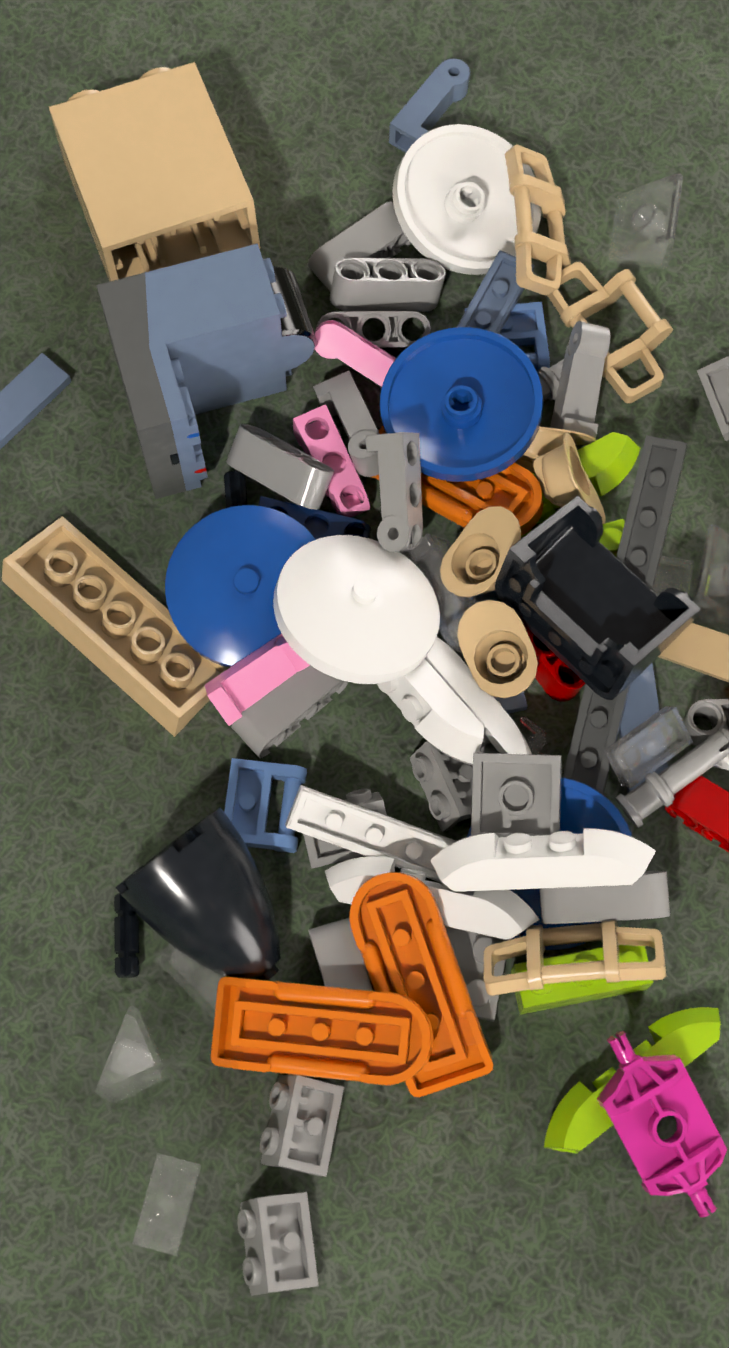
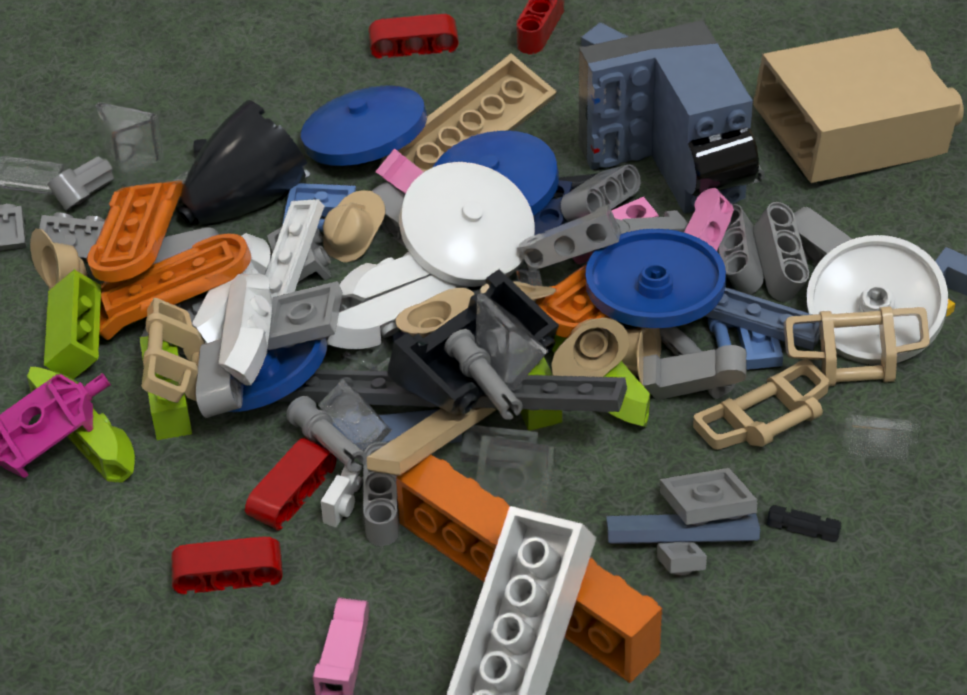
camera: 90 degrees right, 25 degrees down
(120, 747) = (364, 125): none -> blue dish
(206, 1133) = (76, 185): none -> light grey piece
(305, 755) = (353, 225): none -> tan piece
(360, 1135) = (53, 259): none -> tan piece
(480, 1103) = (72, 325): none -> lime brick
(605, 553) = (507, 341): none -> clear slope
(619, 593) = (476, 364): none -> light grey pin

